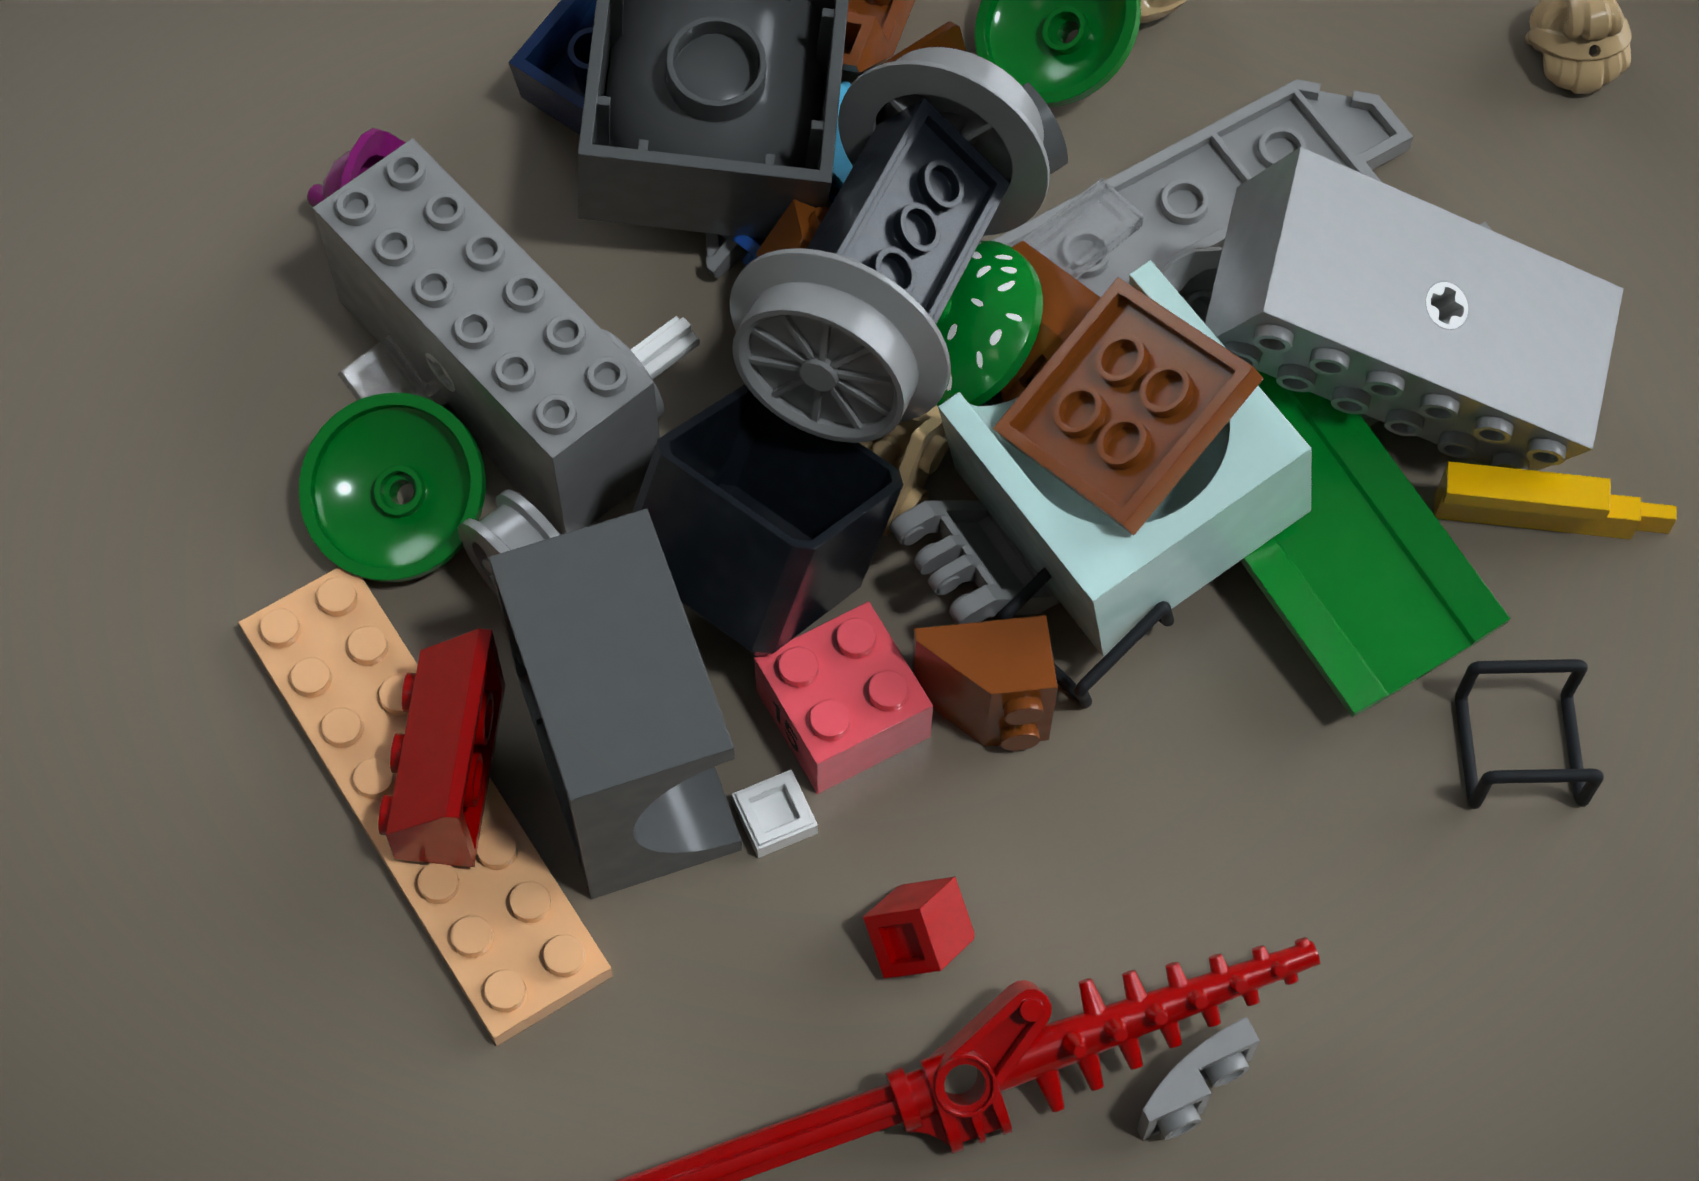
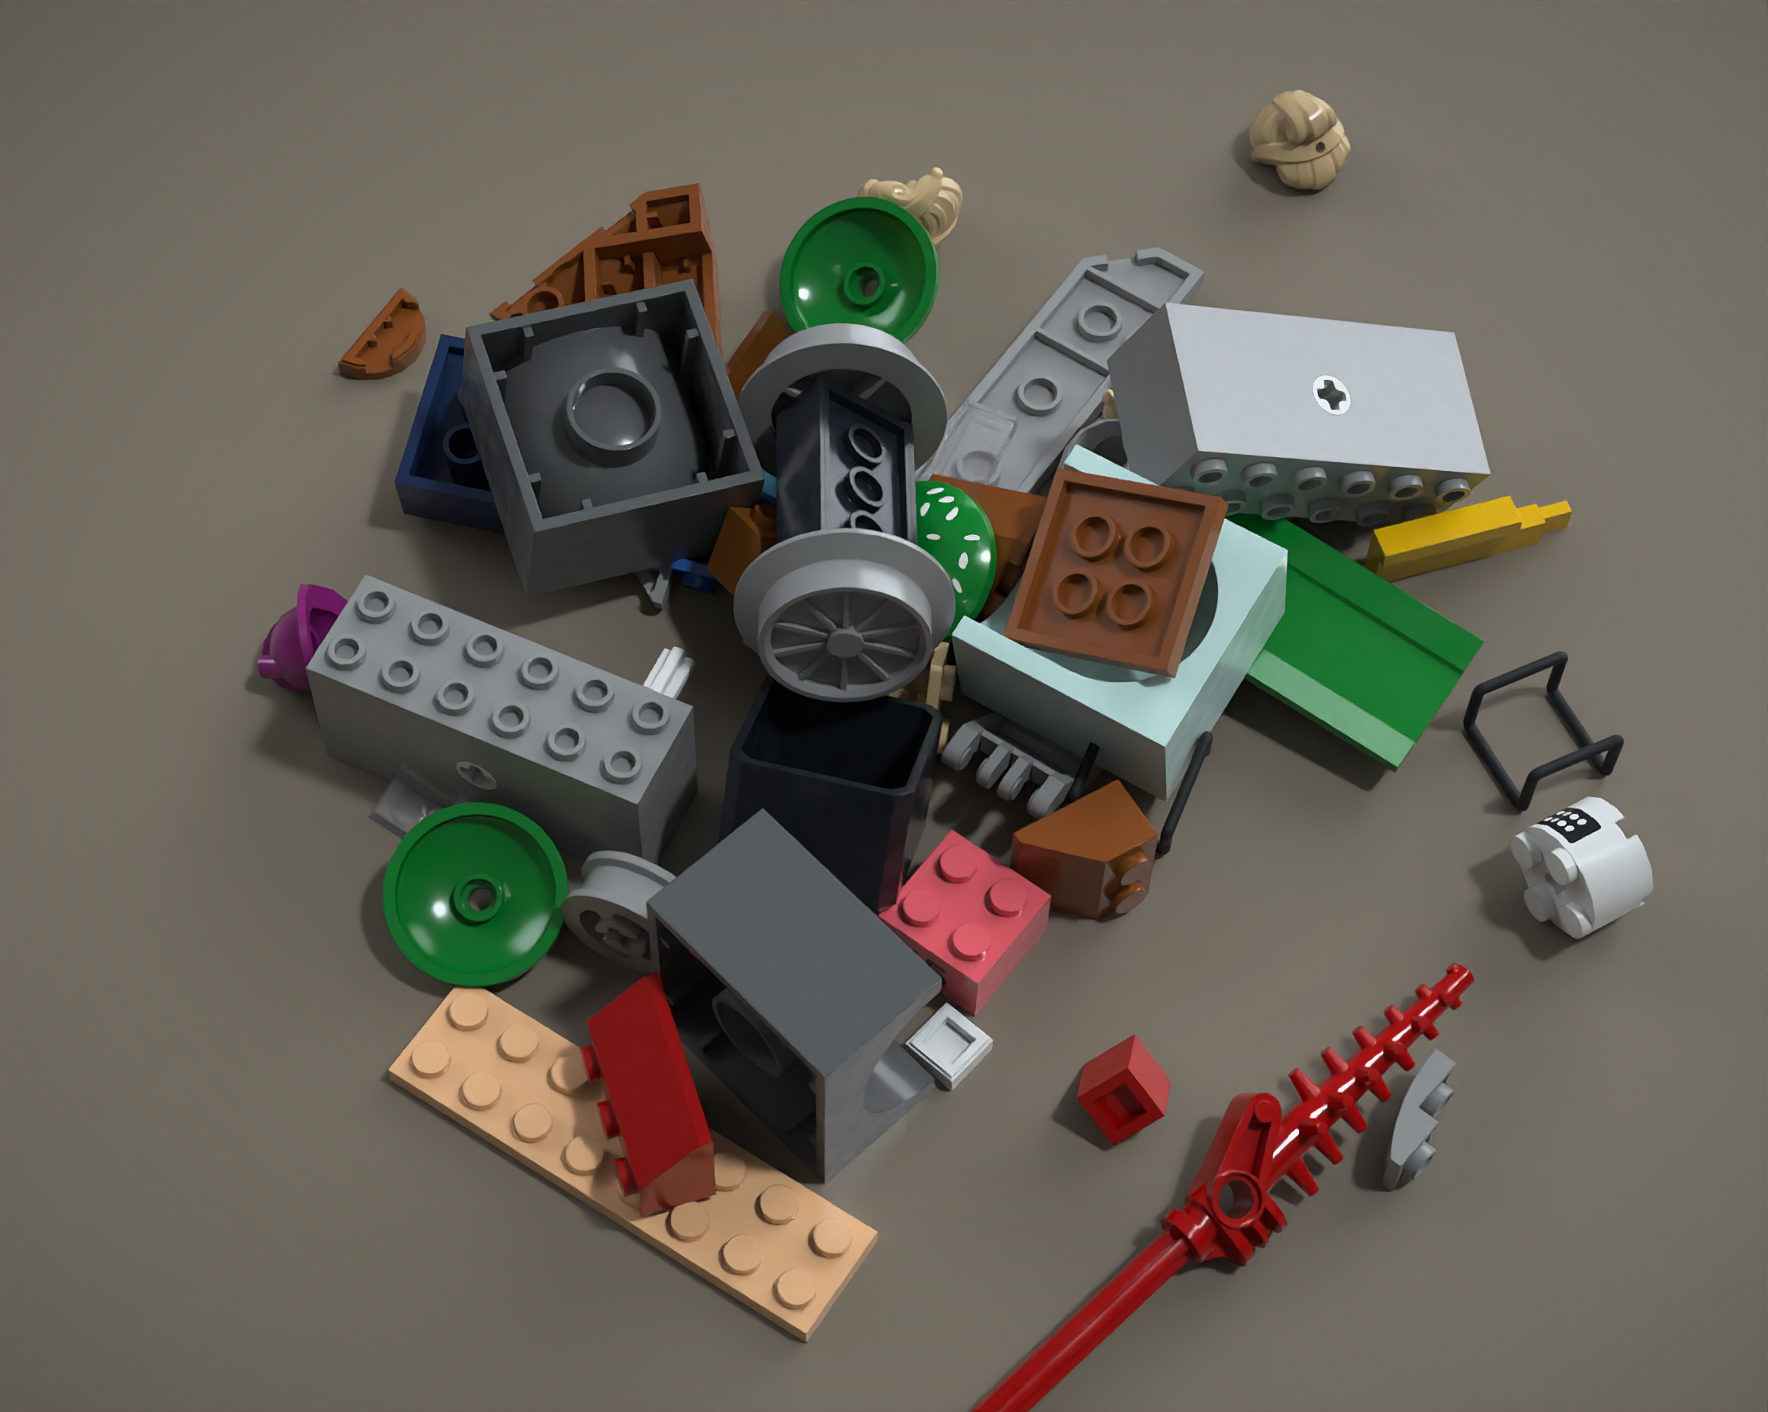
camera: 25 degrees left, 5 degrees down
(1494, 893) = (1582, 868): none -> white brick

